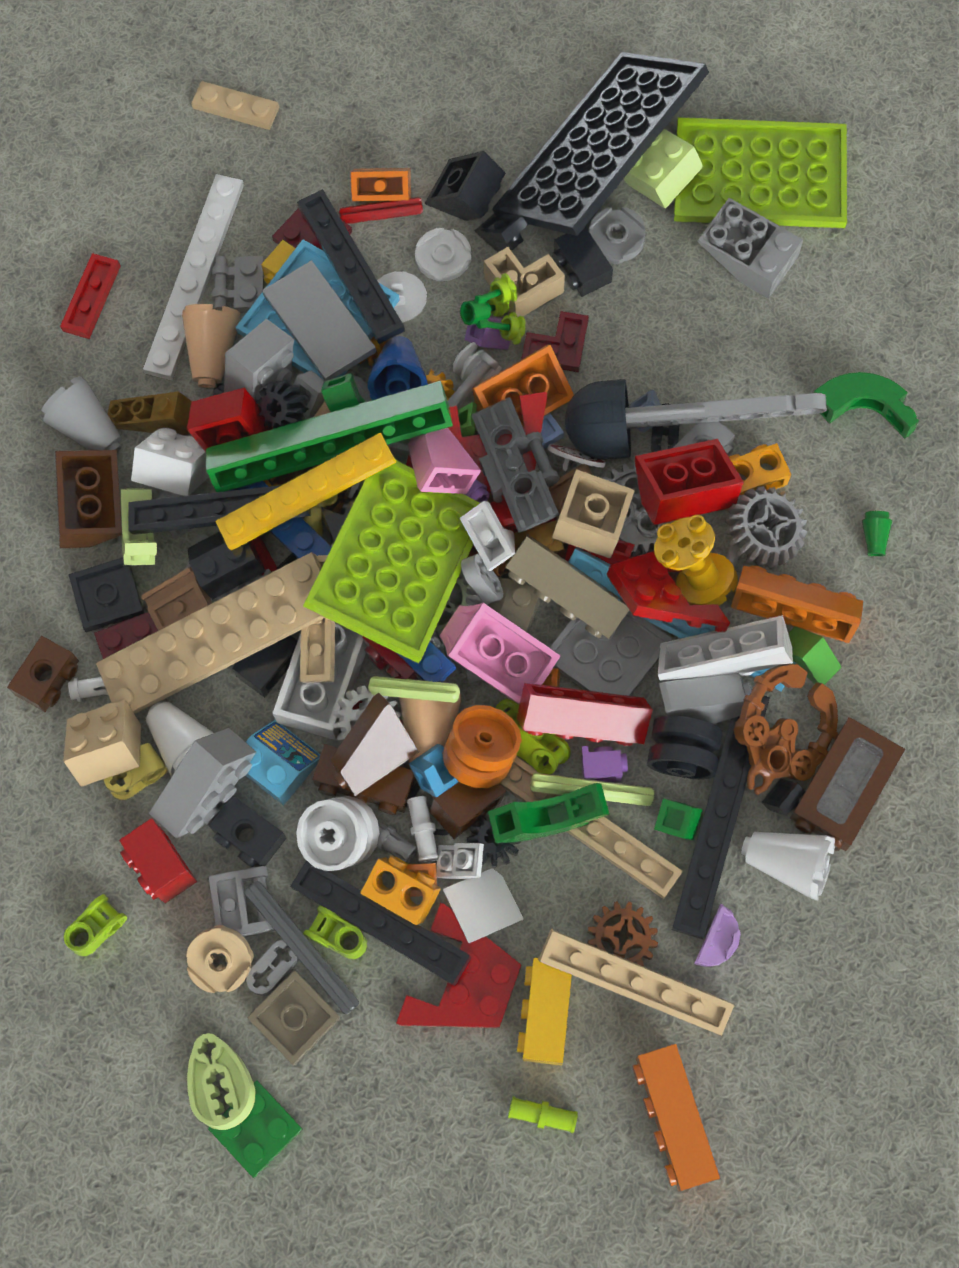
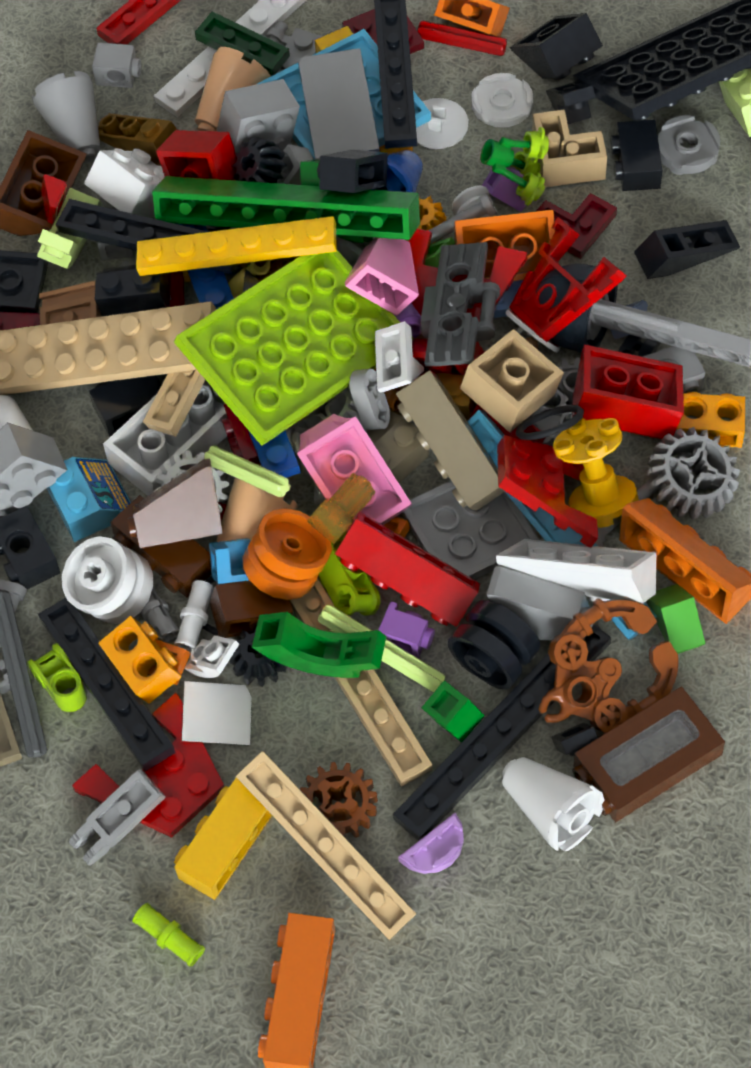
camera: 25 degrees right, 10 degrees down
(95, 354) = (115, 65): none -> light grey brick
(110, 503) = (53, 196): none -> red slope
(189, 290) = (221, 32): none -> dark green plate
(374, 383) = (352, 171): none -> black brick
(452, 1031) = (118, 815): none -> light grey hinge
(509, 696) = (337, 513): none -> clear yellow piece
(612, 418) = (579, 297): none -> red wing
(631, 559) = (552, 431): none -> black piece
(661, 329) = (684, 247): none -> black slope

